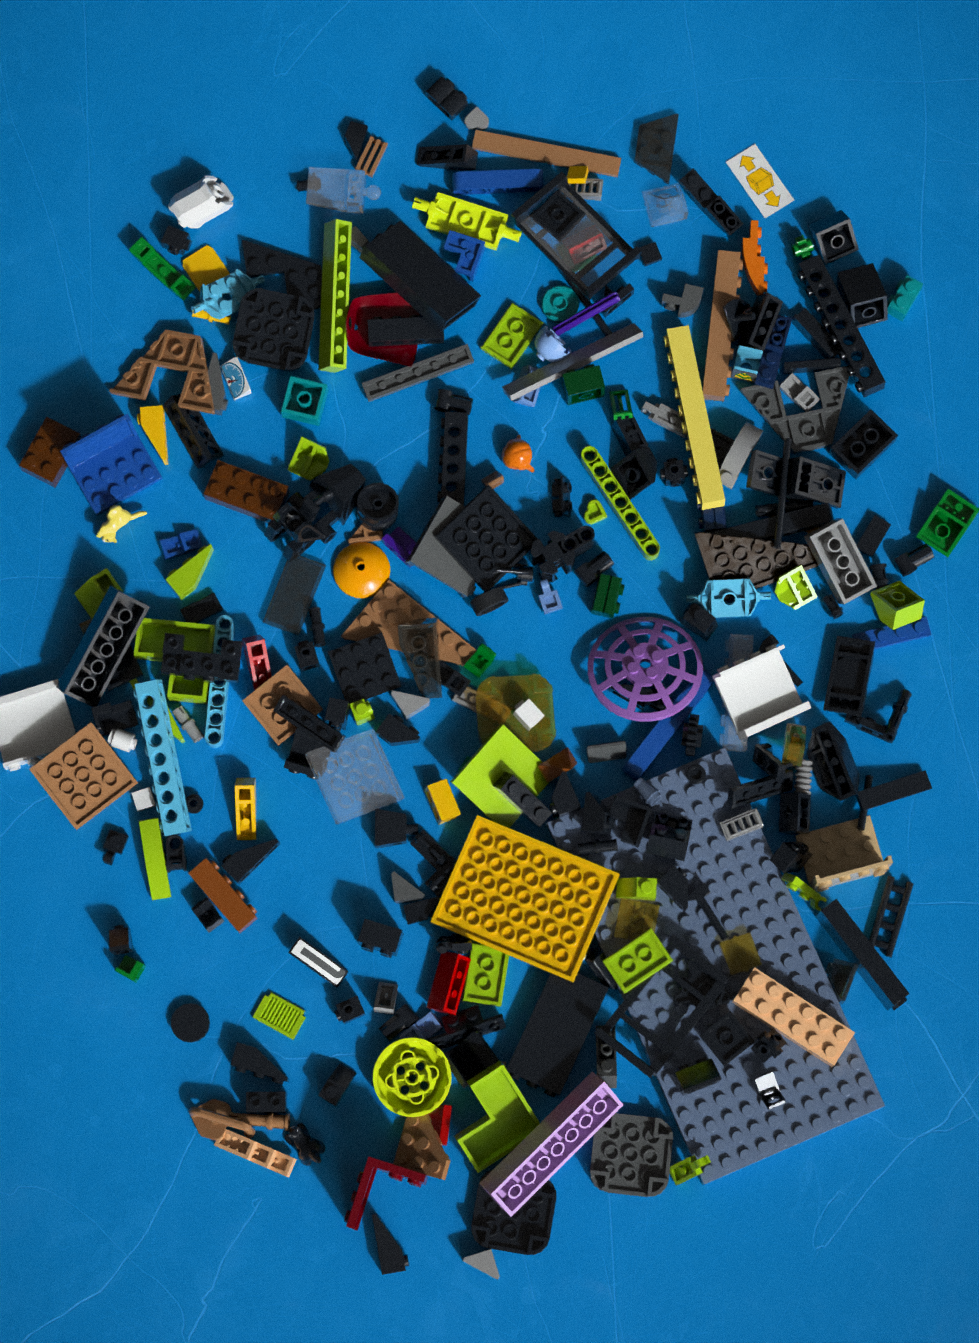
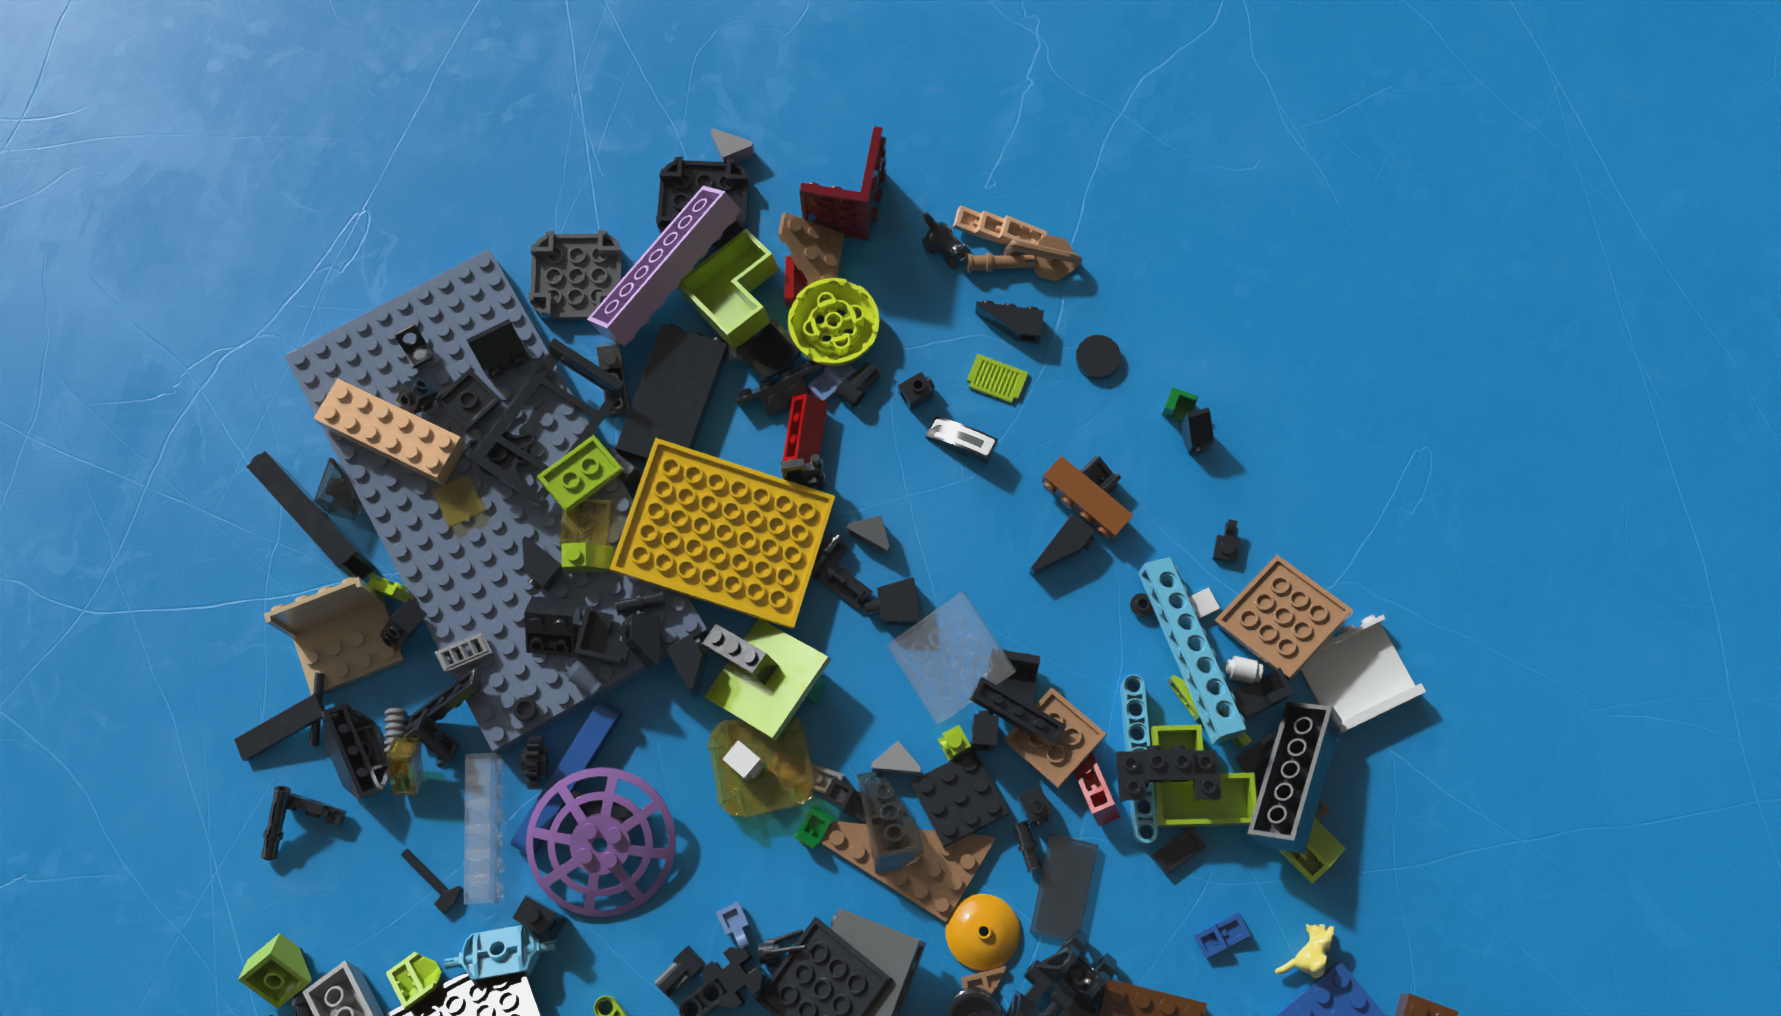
camera: 170 degrees right, 5 degrees down
(155, 858) = (1176, 533): lime slope -> none
(175, 855) = (1151, 537): black piece -> none
(188, 724) = (1167, 700): light grey pin -> none
(189, 575) = (1203, 892): lime slope -> none
(245, 808) = (1078, 607): yellow slope -> none
(266, 1102) = (996, 279): black brick -> none
(337, 1084) = (919, 308): black slope -> none
(380, 938) = (891, 470): black brick -> none
(386, 998) = (876, 407): light grey slope -> none
(390, 1253) = (835, 148): black slope -> none
(396, 733) = (908, 722): black slope -> none
(399, 544) = (936, 973): dark purple panel -> none
(420, 910) = (848, 512): black slope -> none
(442, 801) = (839, 644): yellow hinge -> none
(486, 976) = (763, 444): lime tile -> none
(489, 601) = (810, 906): black tyre -> none
(557, 764) = (700, 706): dark orange slope -> none
(606, 596) = (659, 936): dark green brick -> none
(606, 752) = (643, 733): dark grey slope -> none
(688, 1168) = (507, 263): lime plate -> none
(699, 894) = (512, 563): black piece -> none
(758, 692) = (451, 827): white panel -> none
(794, 813) = (403, 682): black brick -> none
(832, 606) = (364, 961): black pin -> none
(849, 676) = (339, 868): black slope -> none
(886, 636) = (295, 929): blue plate -> none
(899, 909) = (279, 565): black bar -> none

